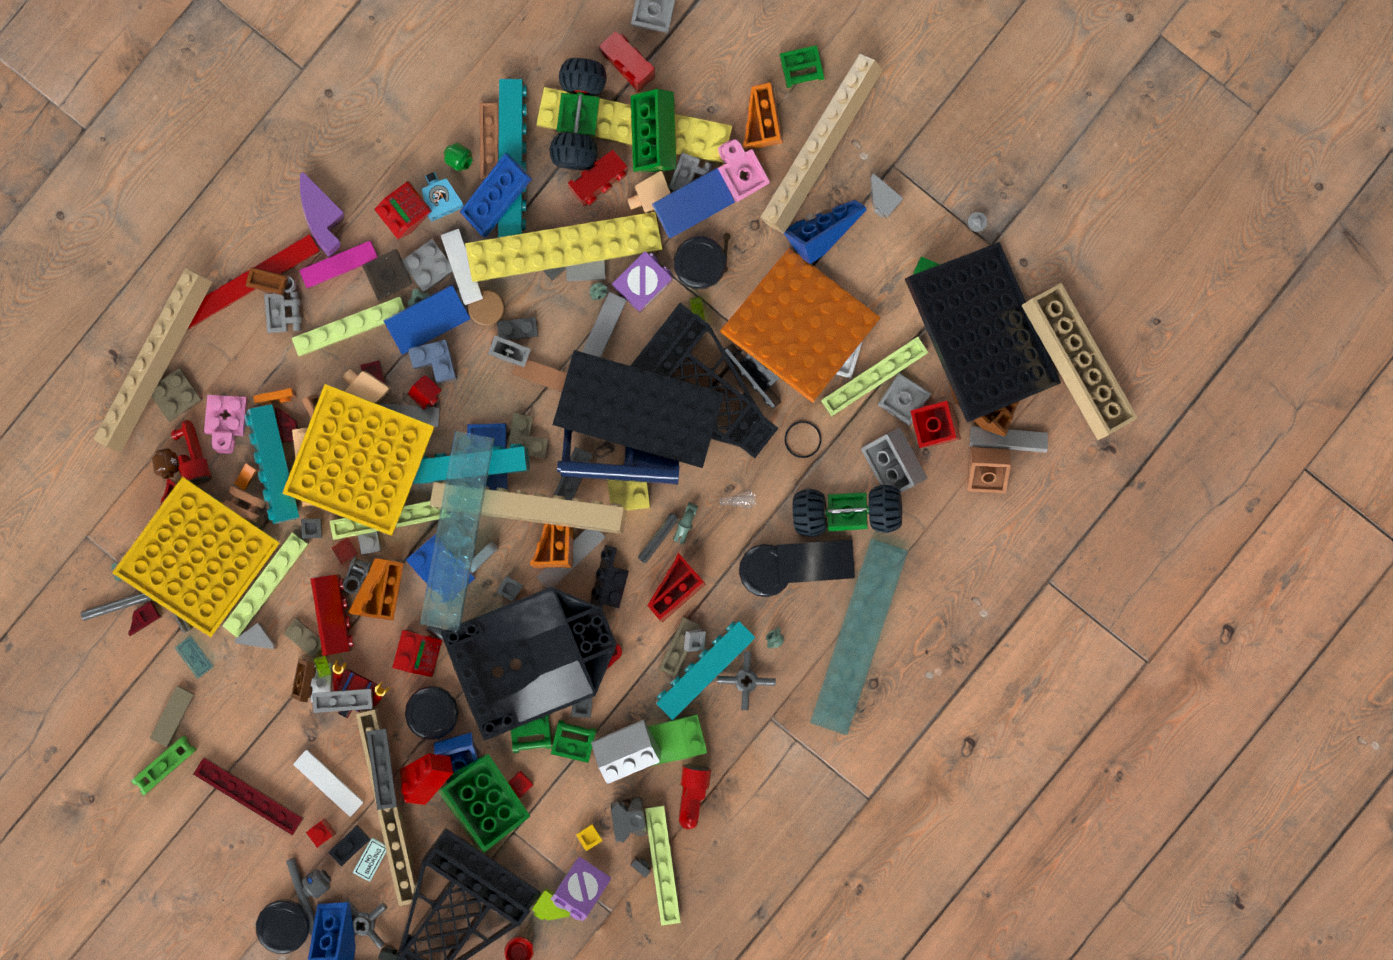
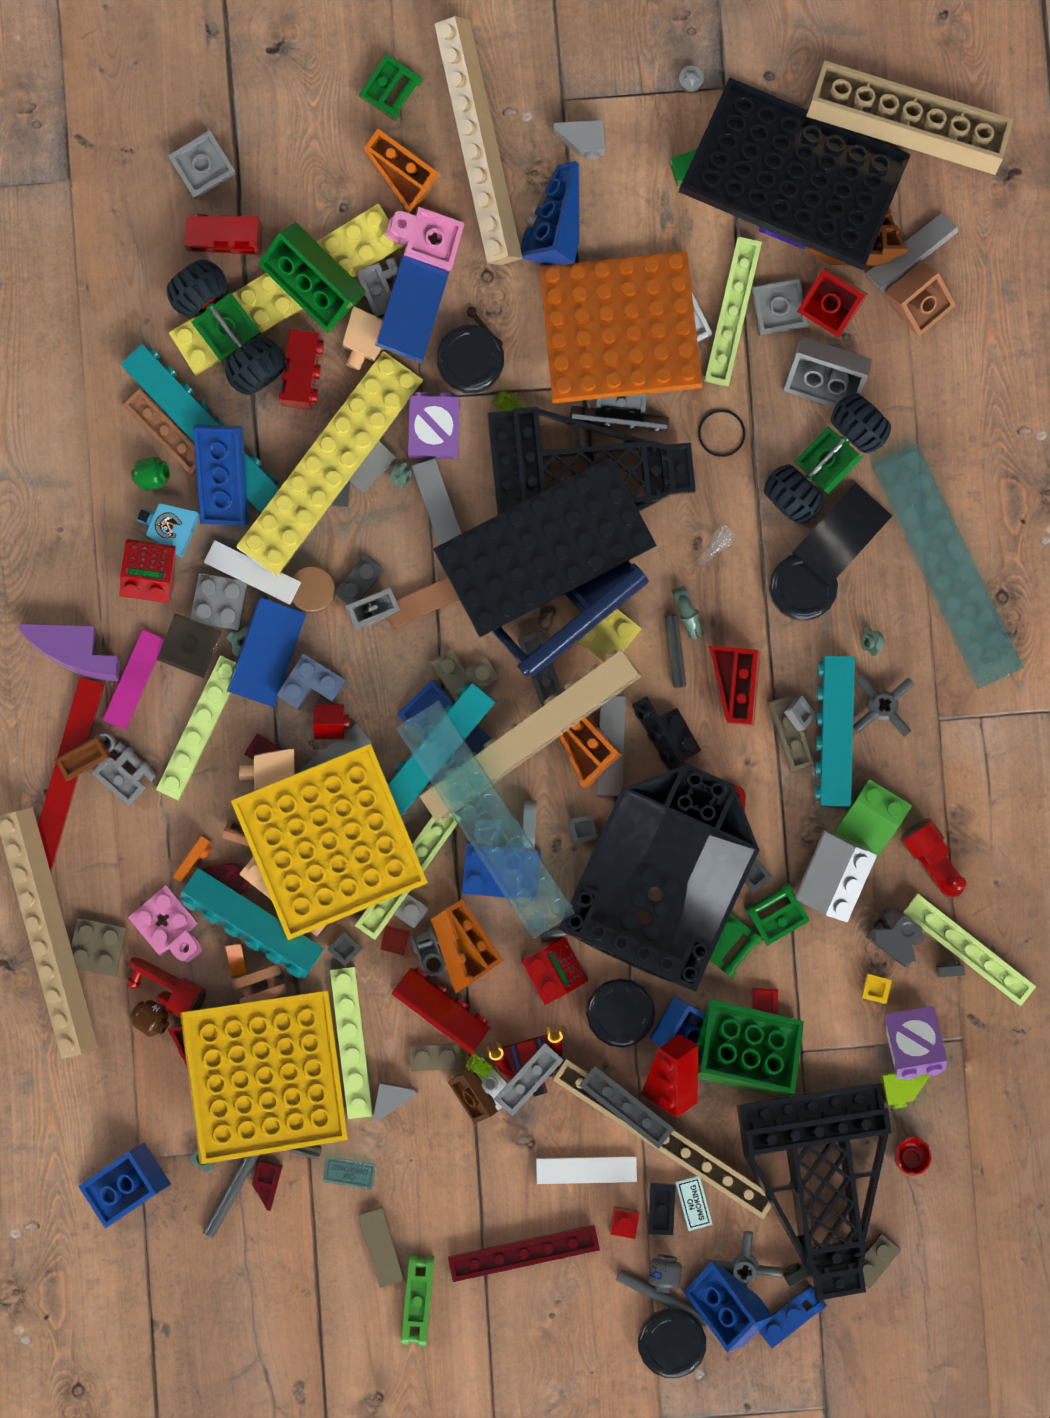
camera: 40 degrees left, 0 degrees up
(62, 543) = (124, 1185): none -> blue slope

